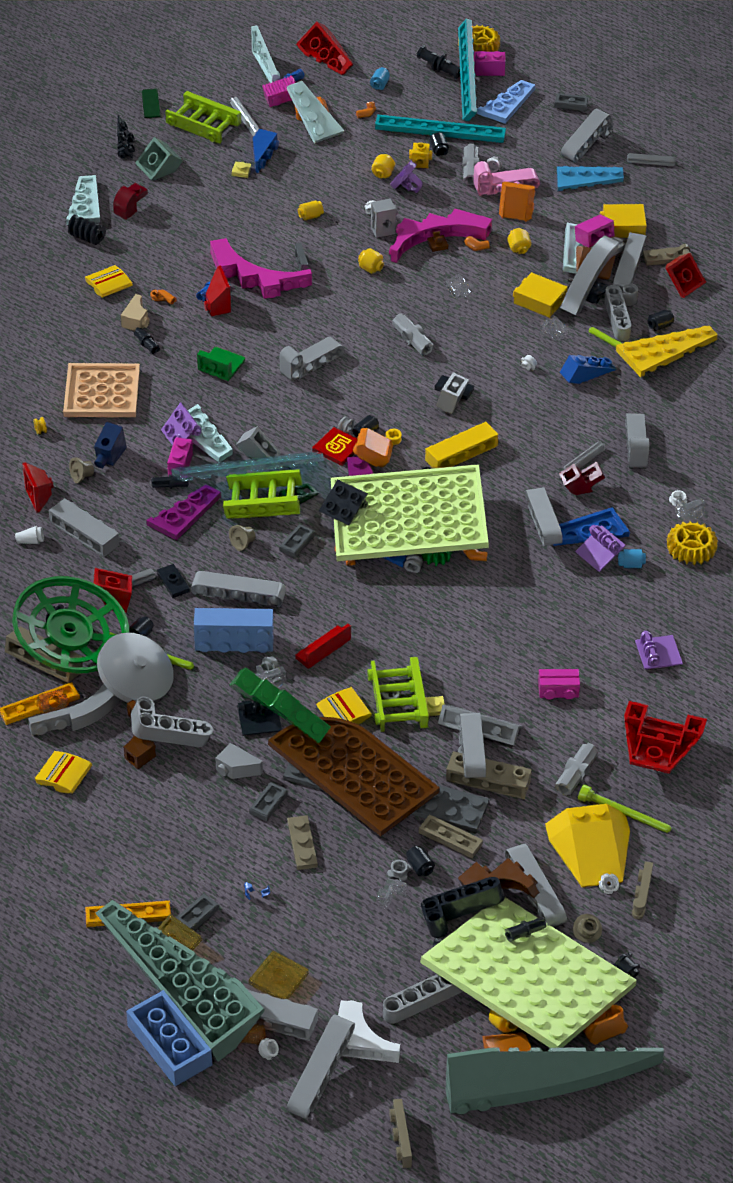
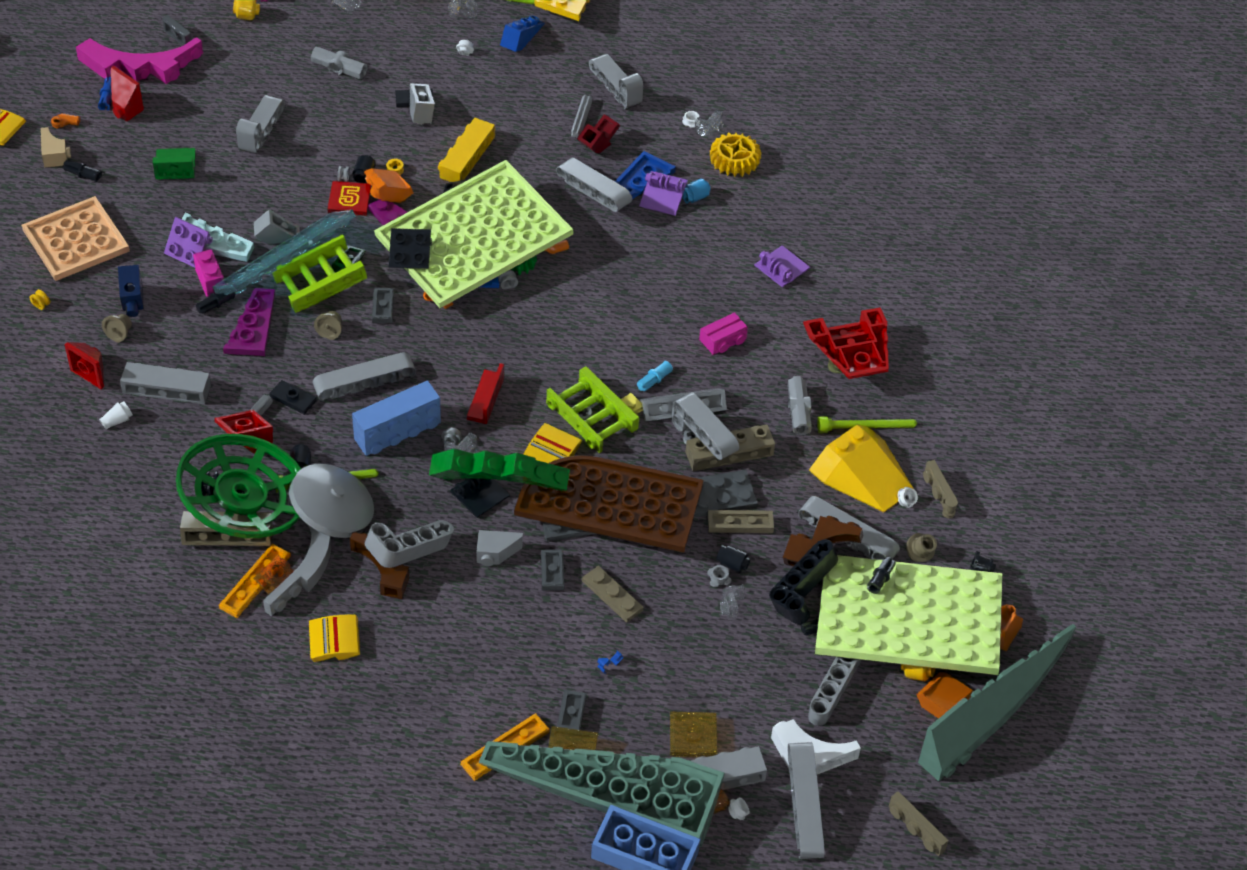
camera: 35 degrees left, 5 degrees up
(474, 692) = (654, 376): none -> medium azure axle

